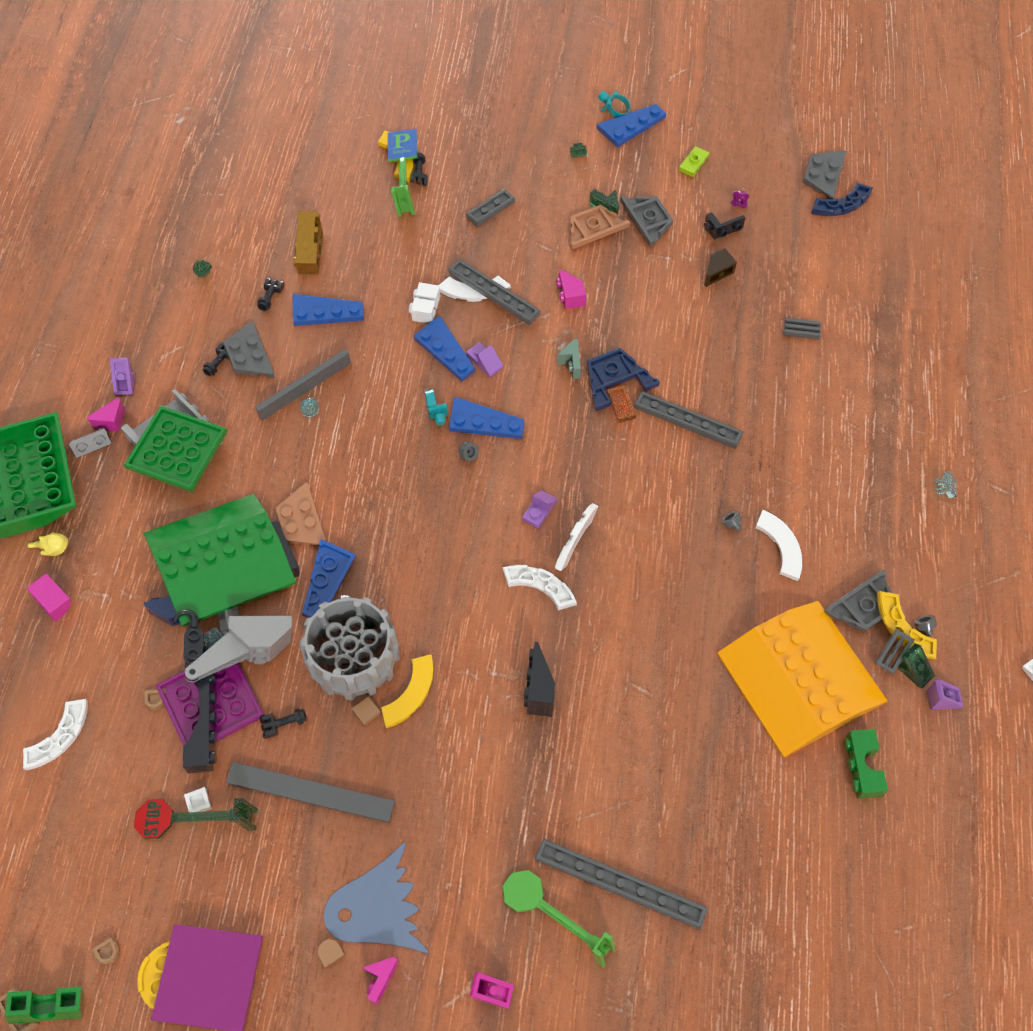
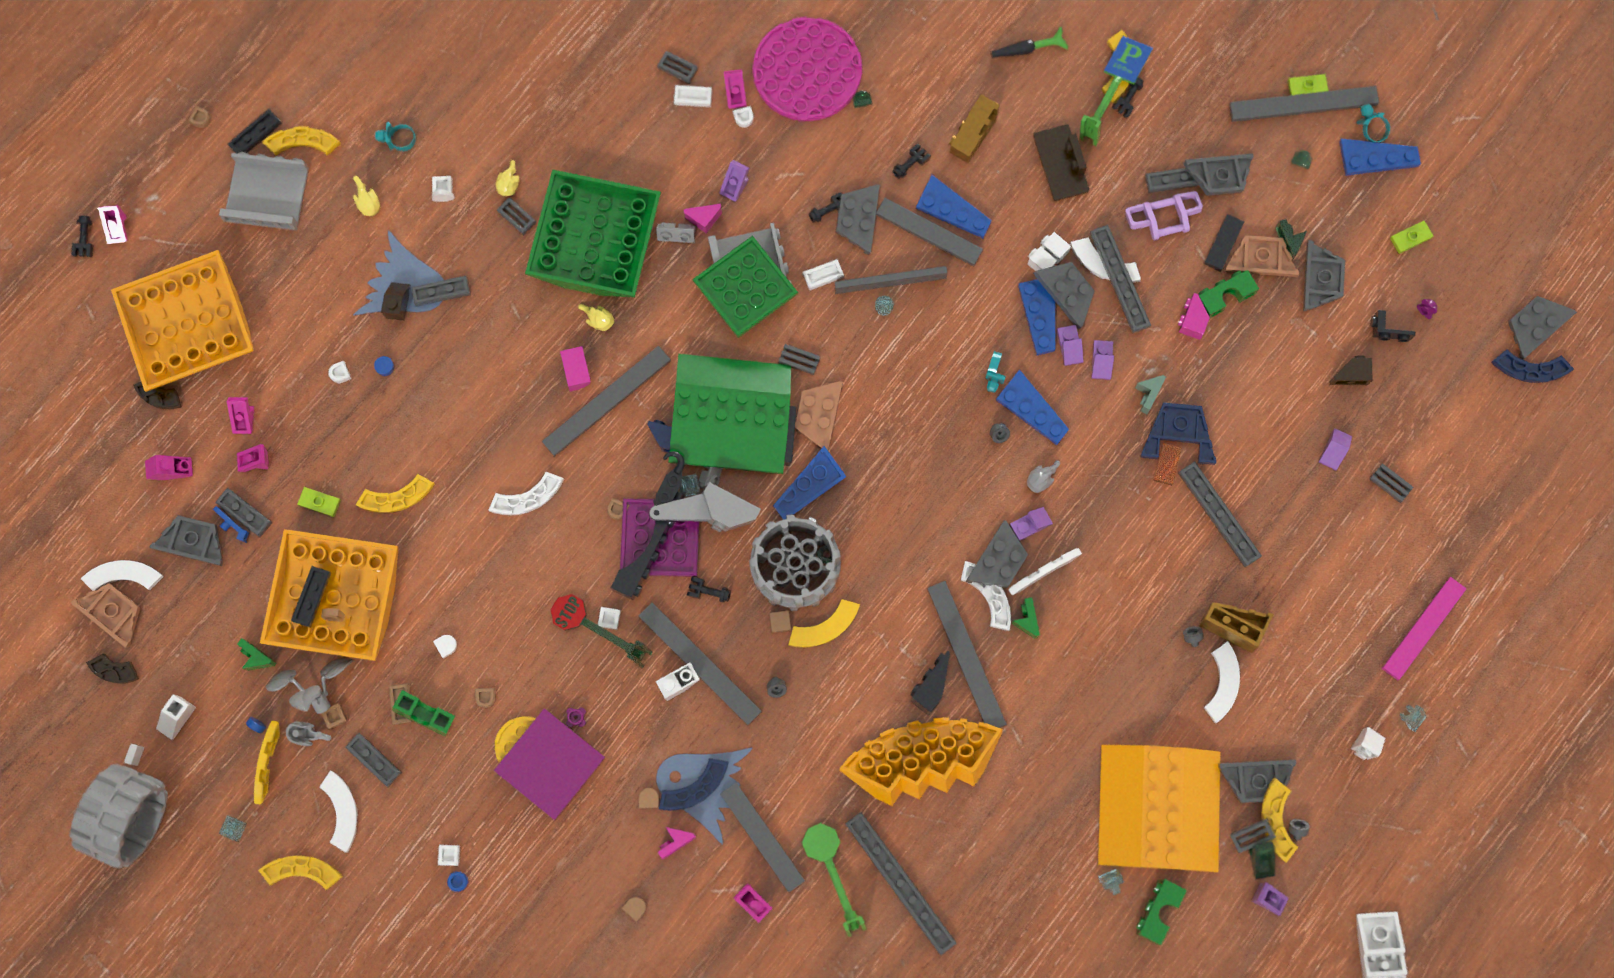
camera: 35 degrees right, 15 degrees up
(27, 320) = (691, 74): none -> dark grey tile
(39, 923) = (446, 645): none -> white tile
(50, 334) = (693, 96): none -> white tile
(85, 309) = (735, 88): none -> dark pink slope
(94, 612) = (606, 401): none -> dark grey tile
(105, 328) = (743, 116): none -> white tile
(142, 271) = (807, 69): none -> dark pink tile
(206, 914) = (571, 713): none -> magenta plate
(241, 411) = (823, 274): none -> white tile
(258, 482) = (803, 353): none -> dark grey tile
(297, 820) = (677, 681): none -> white slope
(315, 335) = (929, 232): none -> dark grey tile
(318, 172) = (1028, 46): none -> black piece
(375, 915) = (696, 792): none -> dark blue tile
(395, 235) = (1062, 162): none -> dark brown bracket
(396, 771) = (776, 687): none -> dark grey tile
(456, 318) = (1068, 290): none -> dark grey wing
(464, 921) = (762, 837): none -> dark grey tile
(491, 241) = (1151, 220): none -> lavender bar
(518, 356) = (1102, 360): none -> medium lavender slope
(523, 186) = (1221, 173): none -> dark grey wing
(524, 467) = (1040, 477): none -> light grey piece
(531, 549) = (1000, 559): none -> dark grey wing
(549, 104) = (1307, 84): none -> lime plate
(552, 117) = (1303, 103): none -> dark grey tile
(554, 646) = (966, 655): none -> dark grey tile
(558, 231) = (1224, 242): none -> black tile
(567, 755) = (922, 757): none -> light orange brick
(590, 586) = (1029, 624): none -> green slope
(591, 252) = (1240, 285): none -> green arch
(744, 327) = (1335, 449): none -> medium lavender slope
(761, 492) = (1236, 625): none -> pearl gold wedge
(806, 763) = (1111, 881): none -> clear light blue tile
(904, 417) = (1424, 628): none -> dark pink tile
(930, 524) = (1368, 744): none -> white slope

